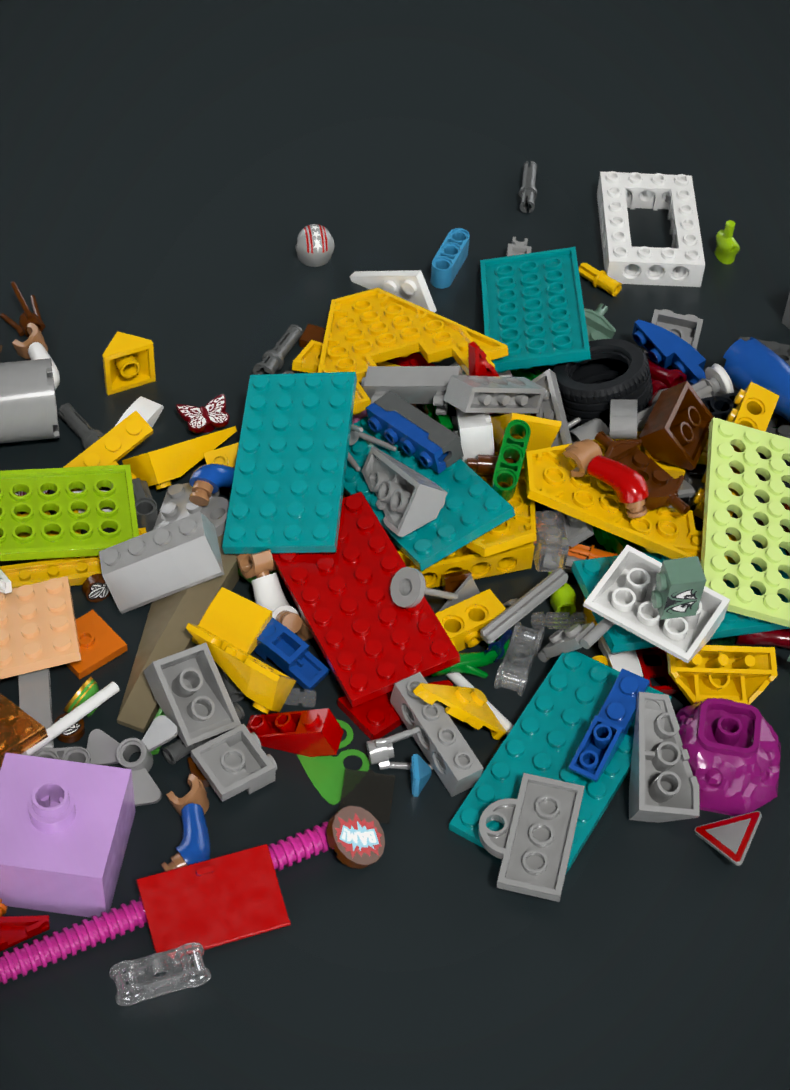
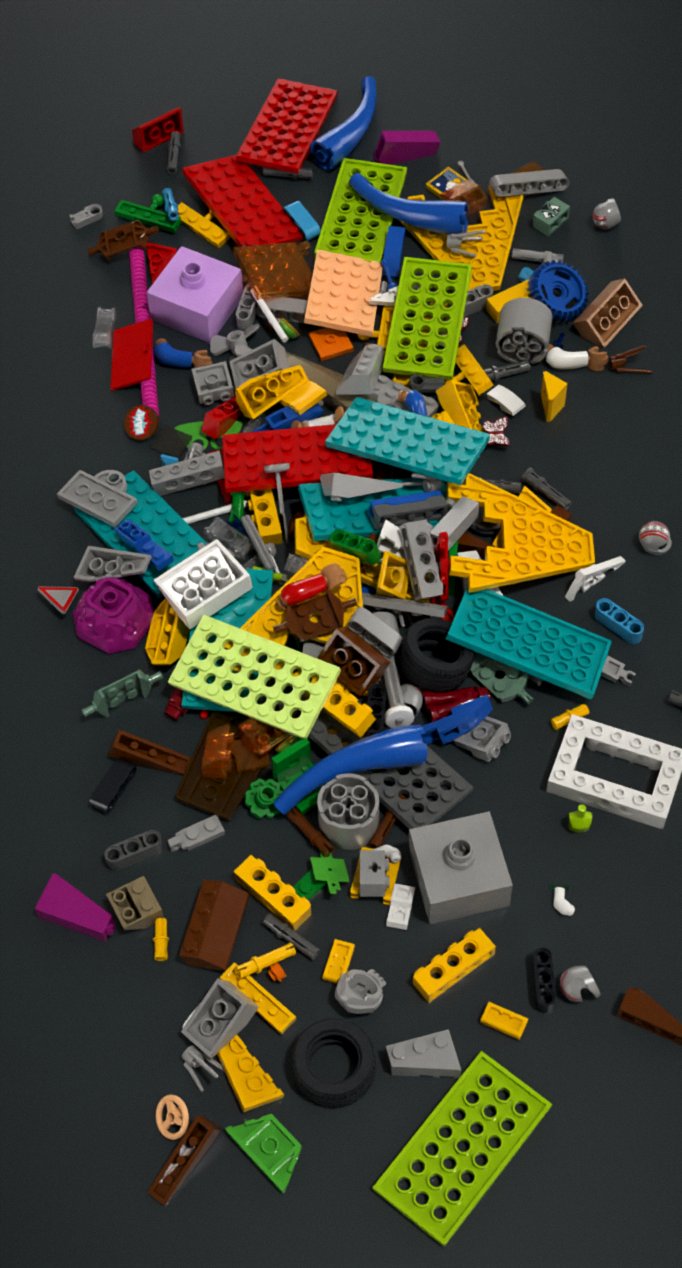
camera: 115 degrees right, 10 degrees up
(464, 704) = (198, 491): yellow wing -> none
(678, 587) = (191, 573): sand green brick -> none

